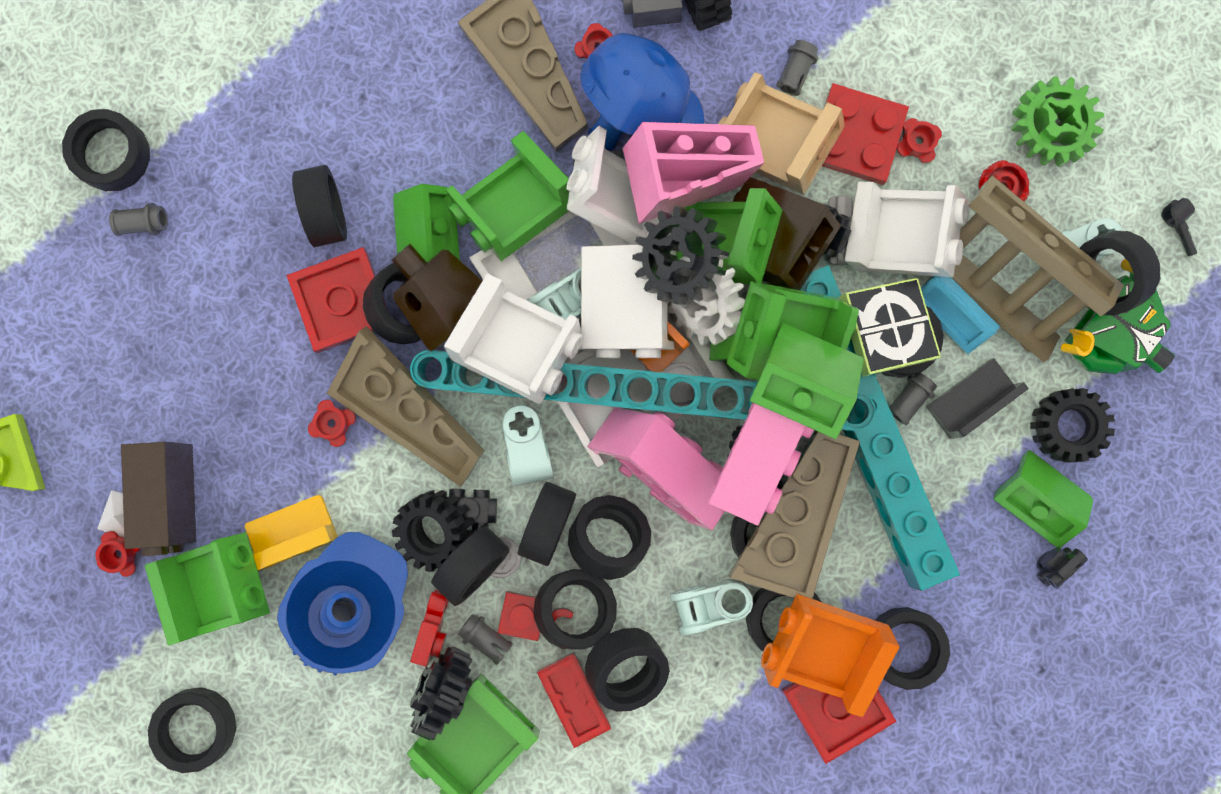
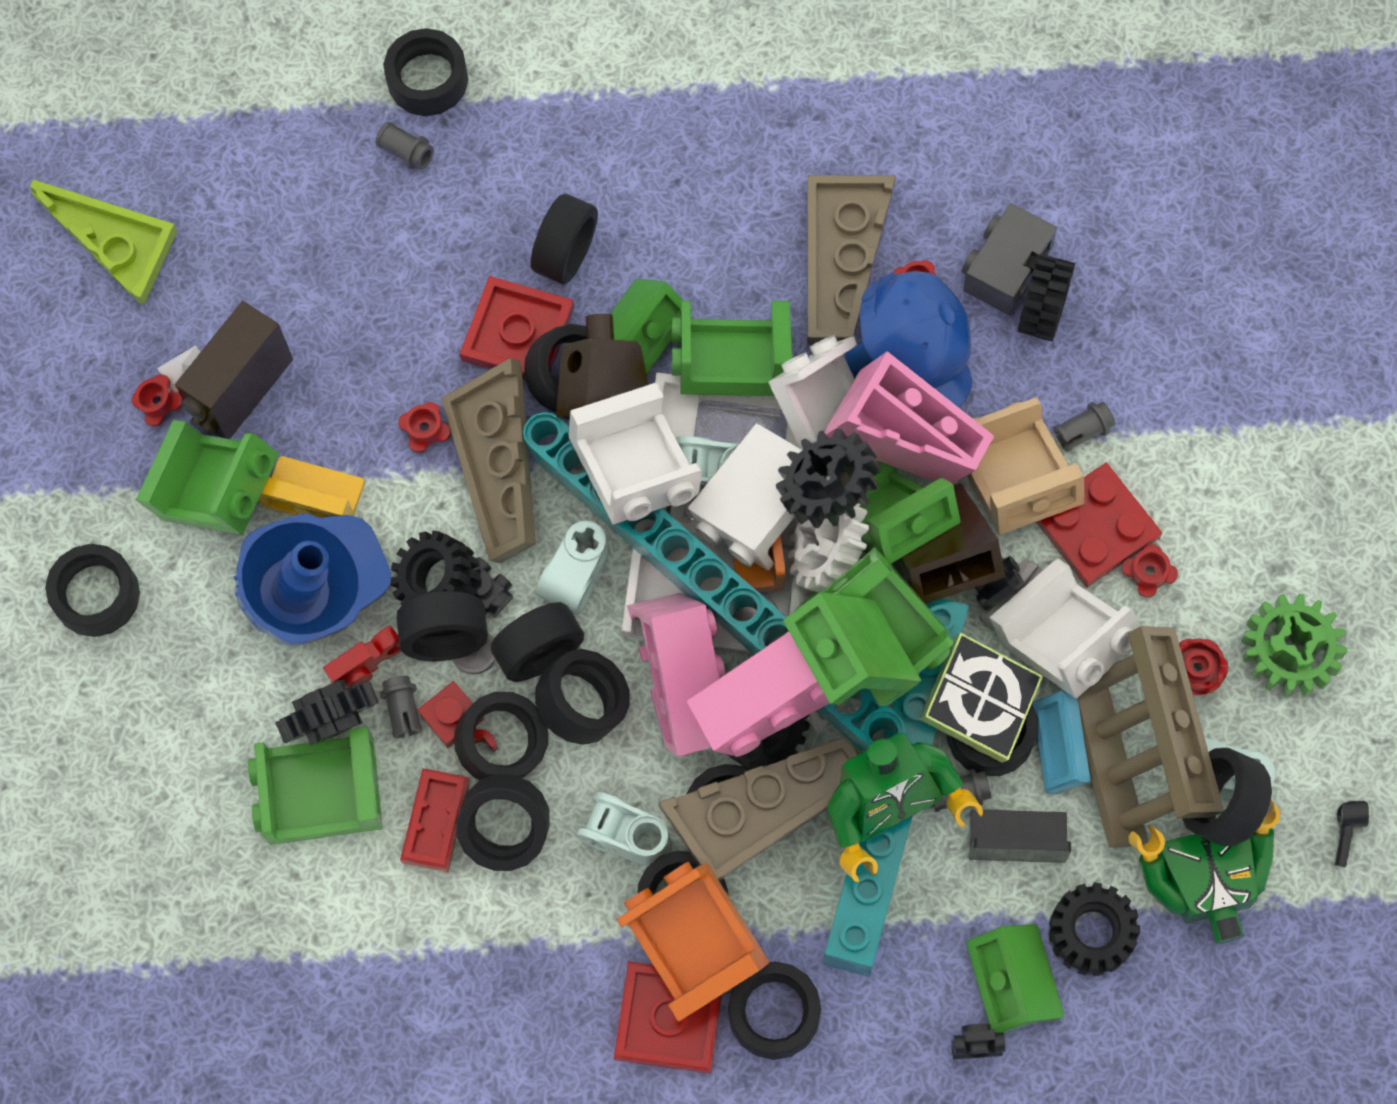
camera: 50 degrees right, 15 degrees down
(889, 450) = (887, 787): none -> green torso

